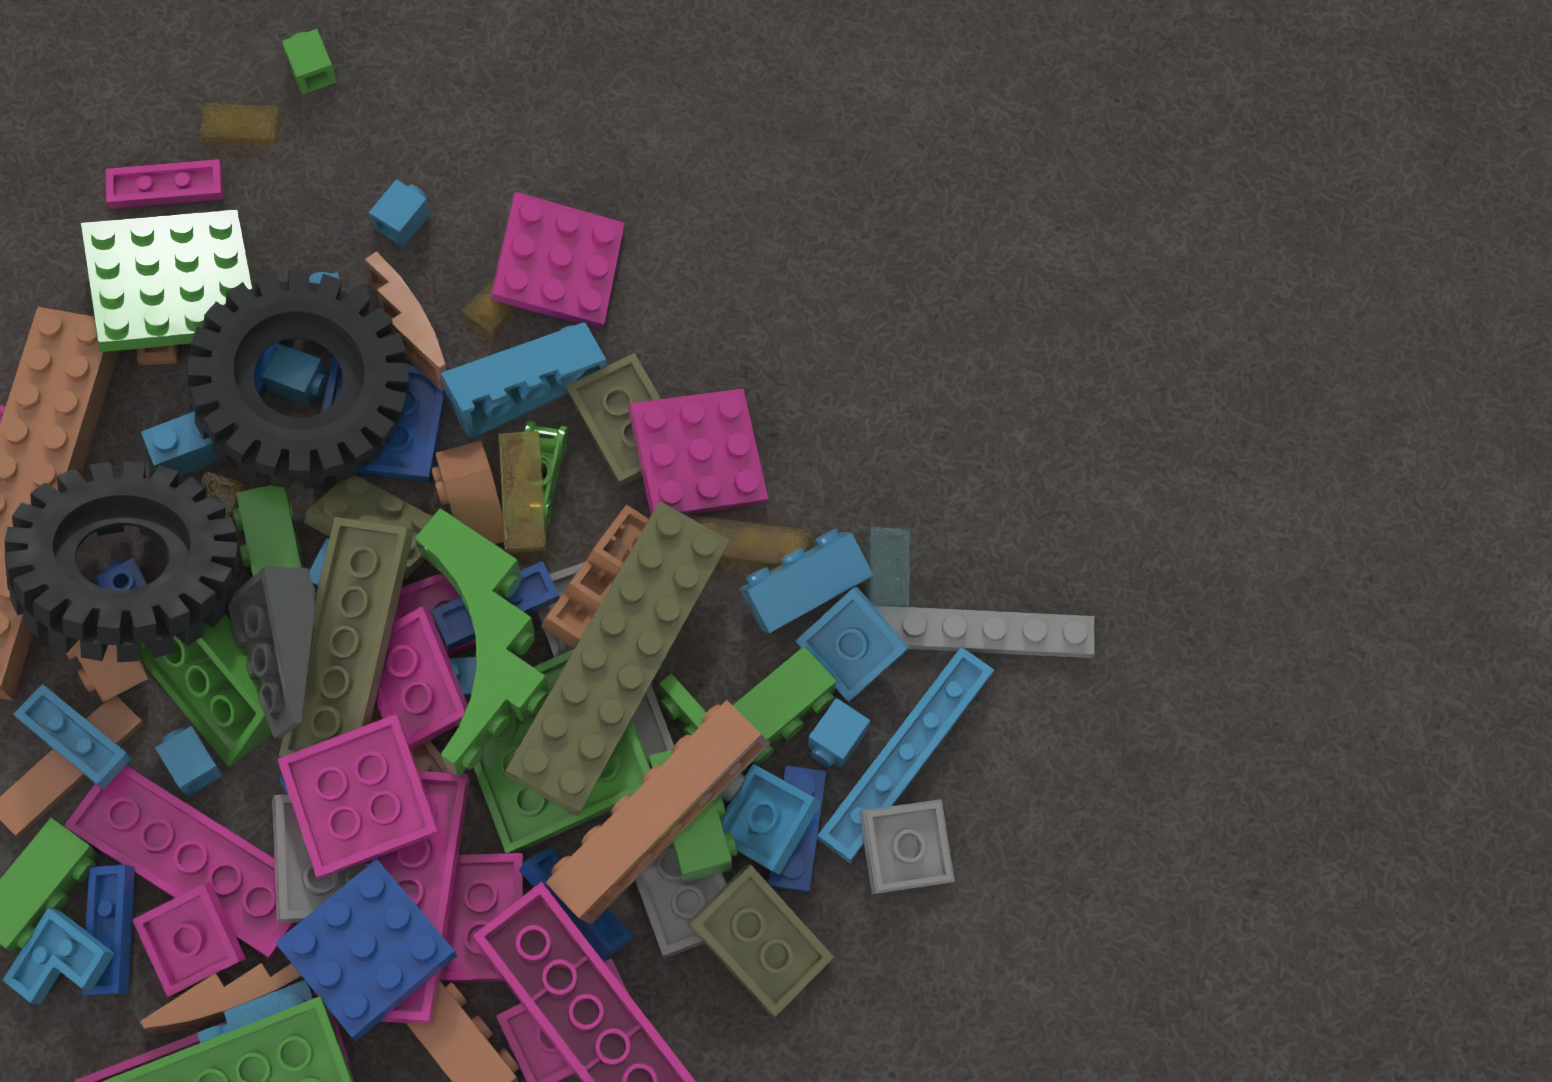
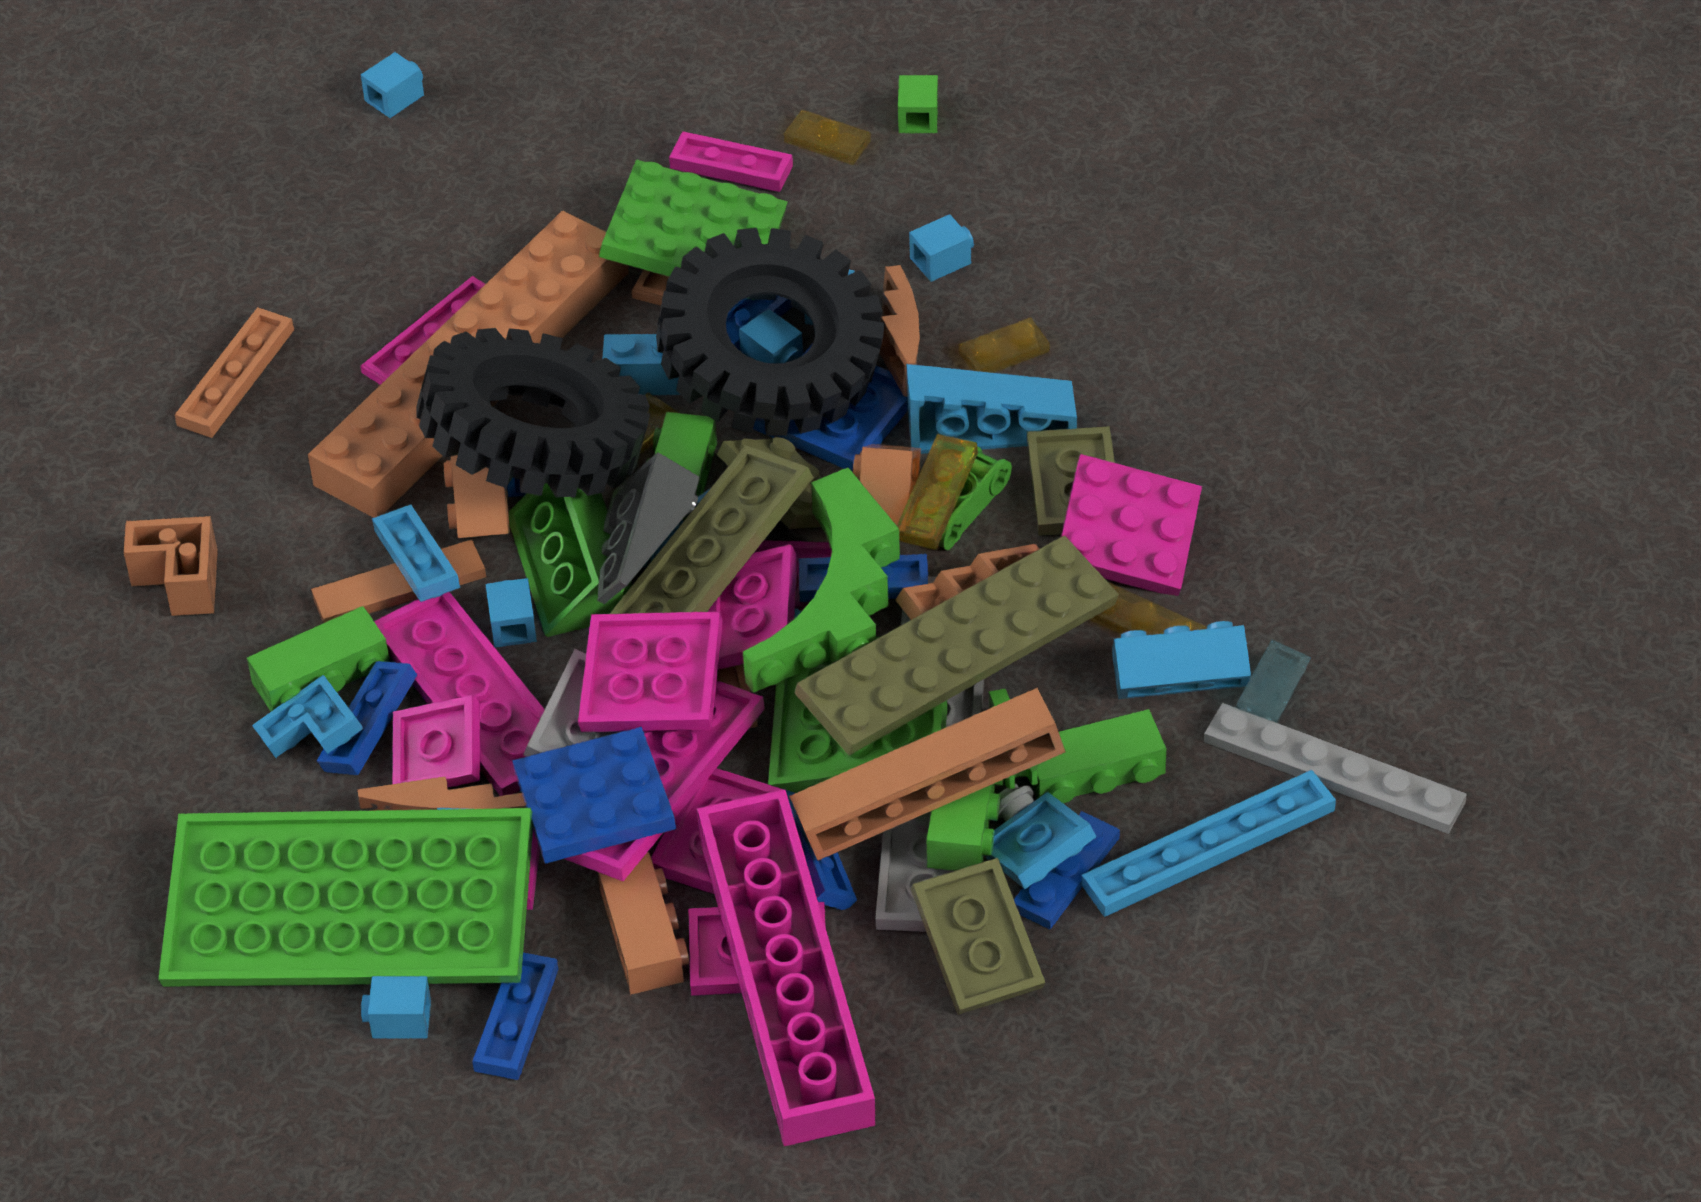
camera: 30 degrees right, 20 degrees down
(557, 261) = (1073, 329): dark pink plate -> none
(837, 735) = (1147, 800): dark azure brick -> none
(853, 643) = (1201, 727): dark azure plate -> none
(906, 846) = (1167, 916): light grey tile -> none

